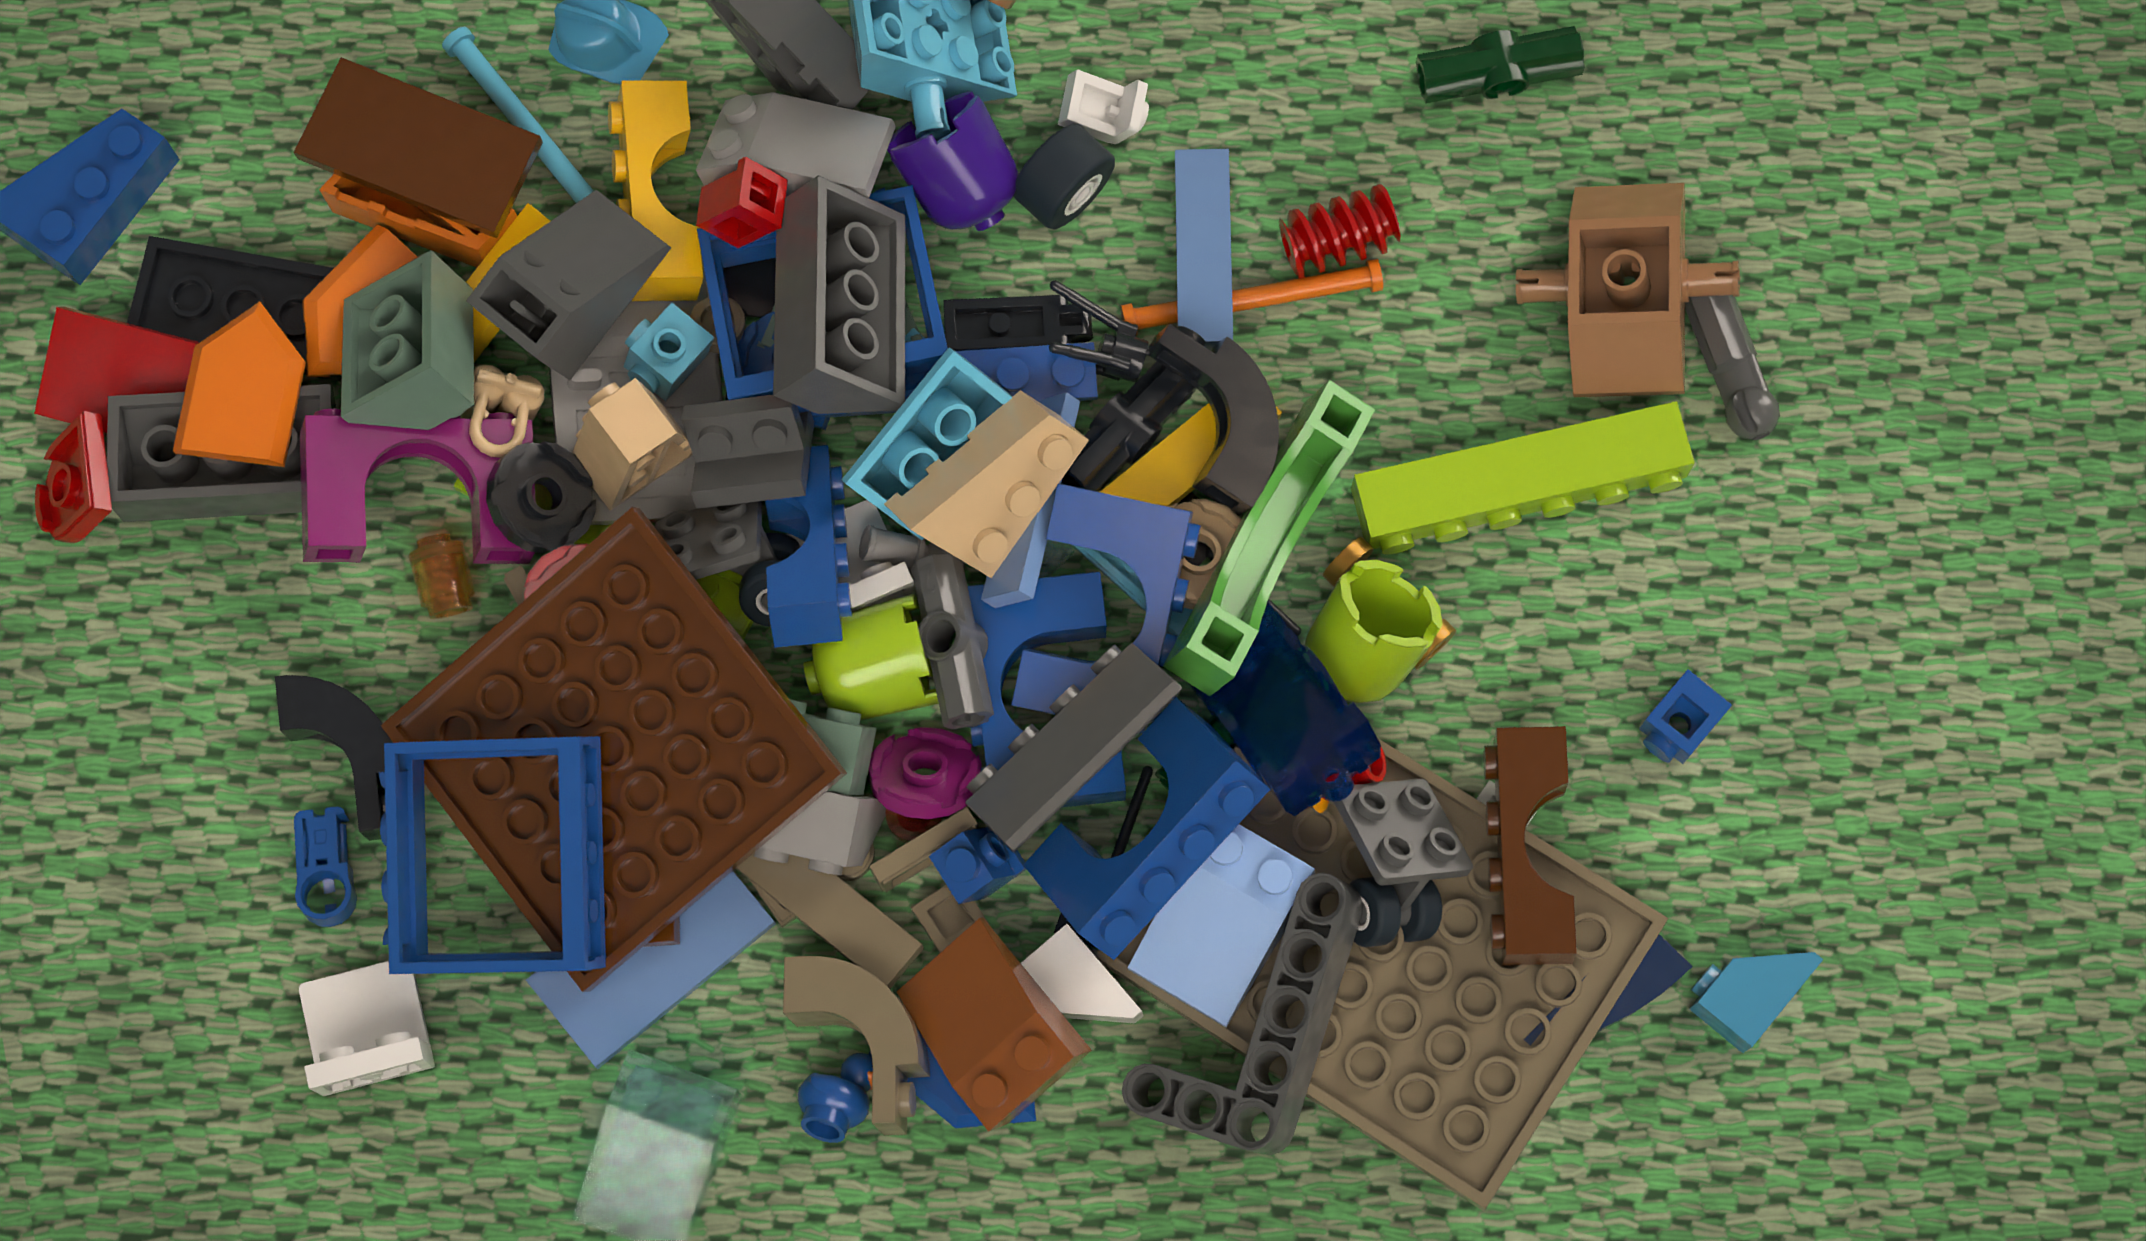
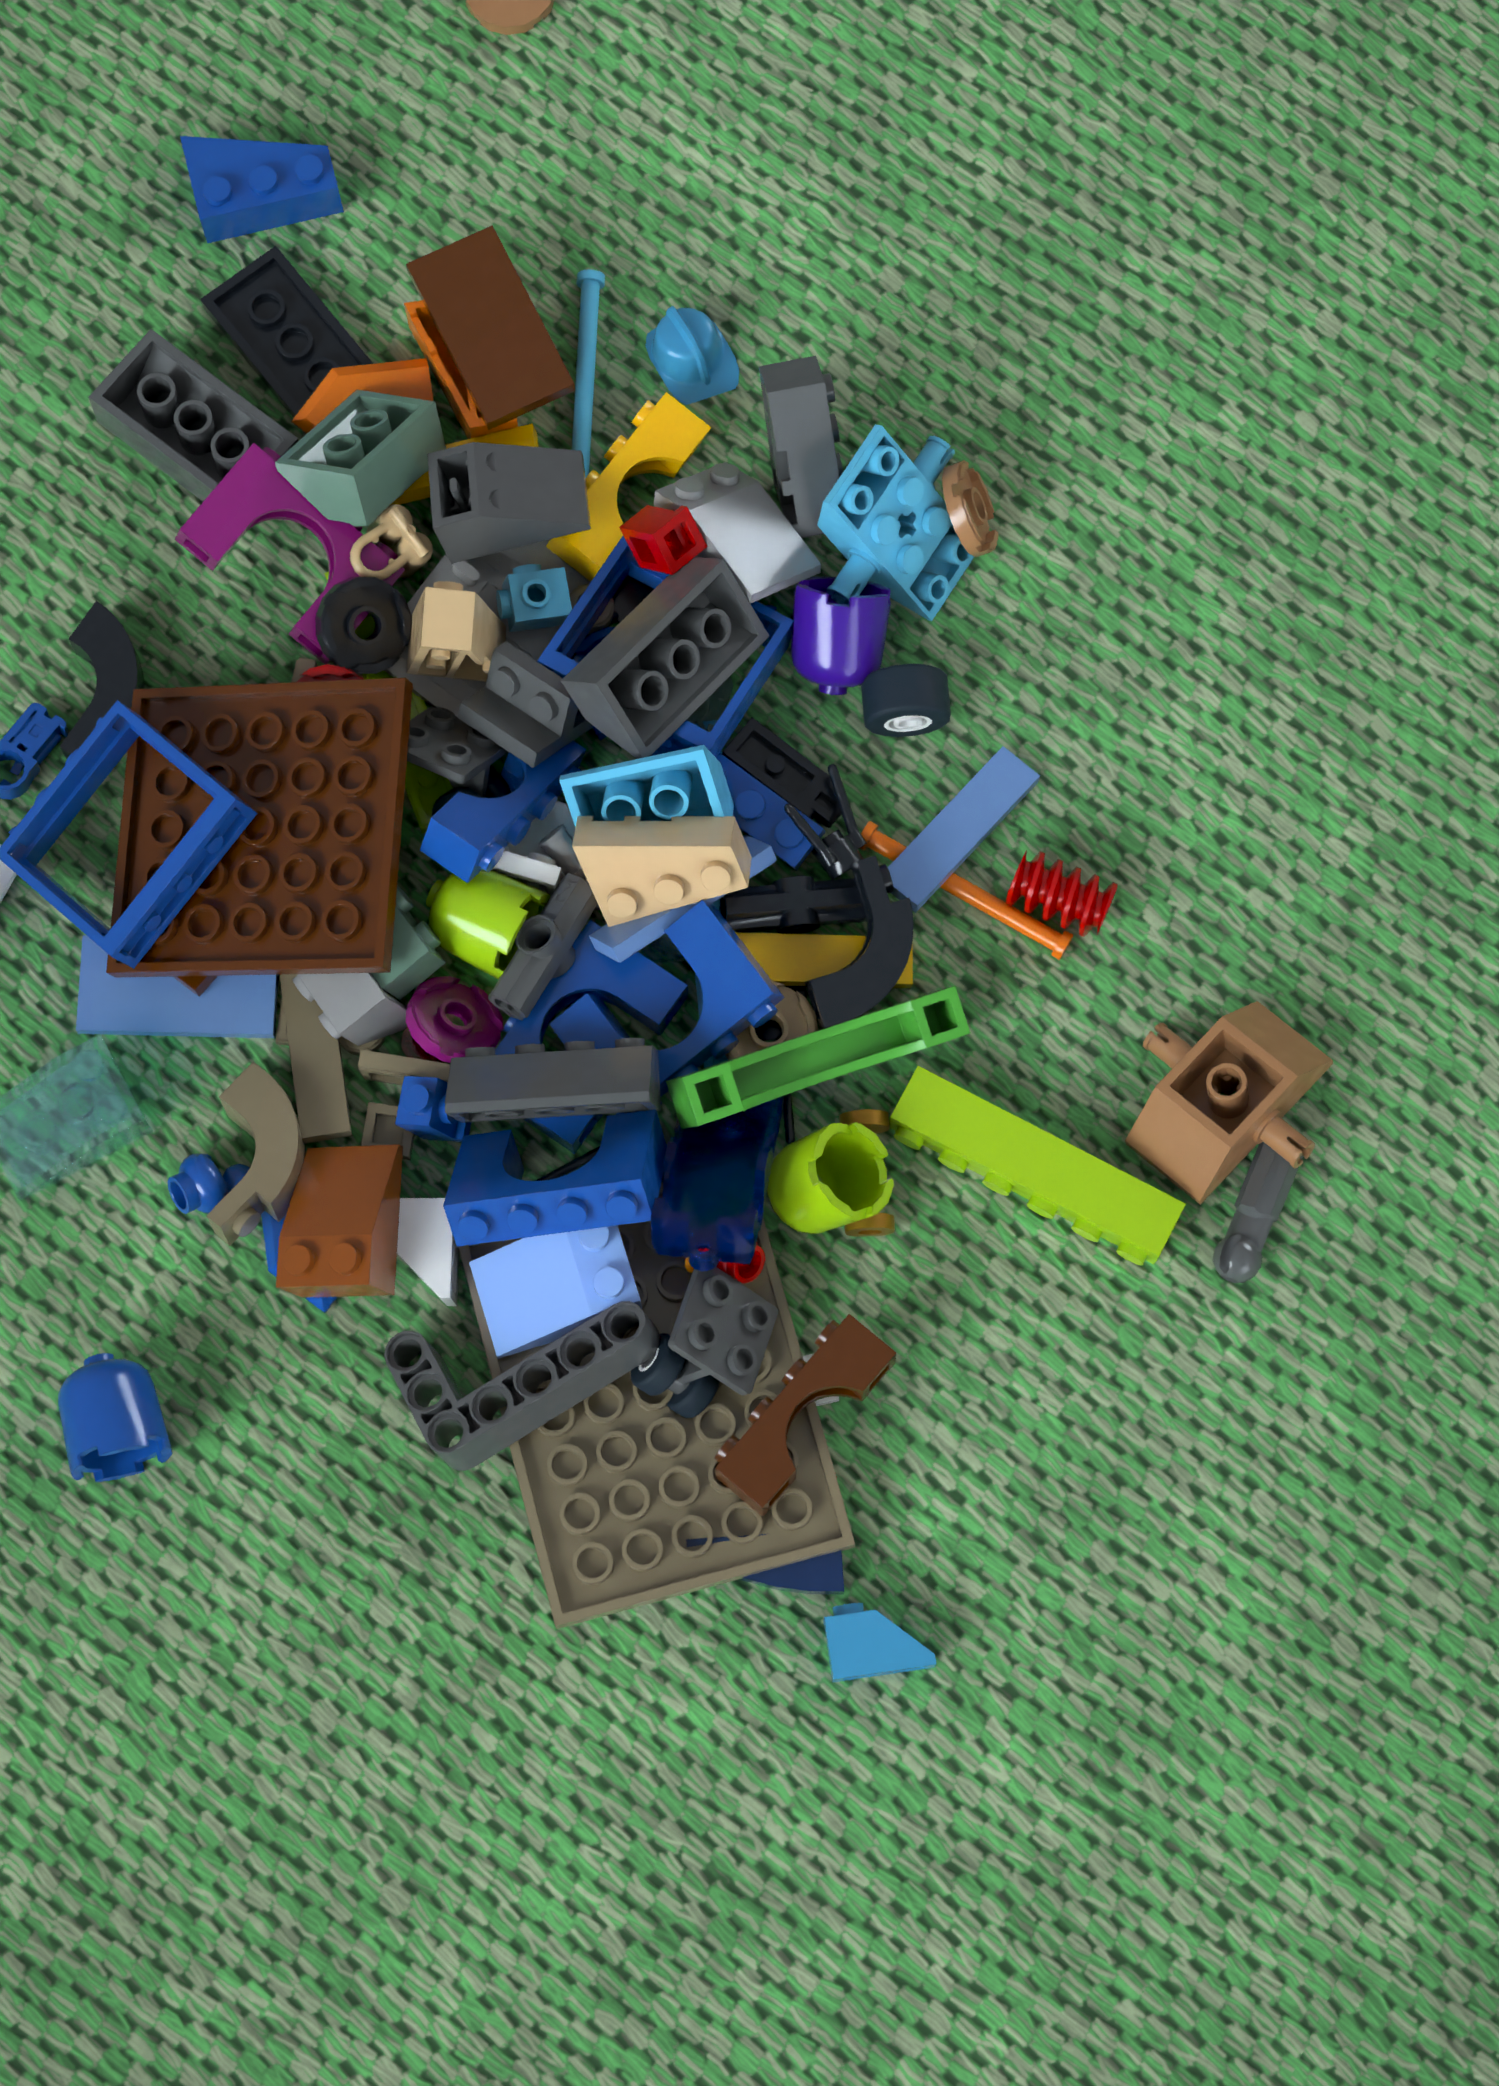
camera: 40 degrees right, 0 degrees up
(76, 483) = (76, 378): red tile -> none
(105, 358) = (180, 309): red tile -> none
(242, 393) = (235, 396): orange tile -> none
(442, 576) = (263, 626): clear orange brick -> none
(1103, 107) = (978, 676): white bracket -> none
(1500, 64) = (1281, 872): dark green piece -> none
(1696, 705) = (1008, 1409): blue brick -> none

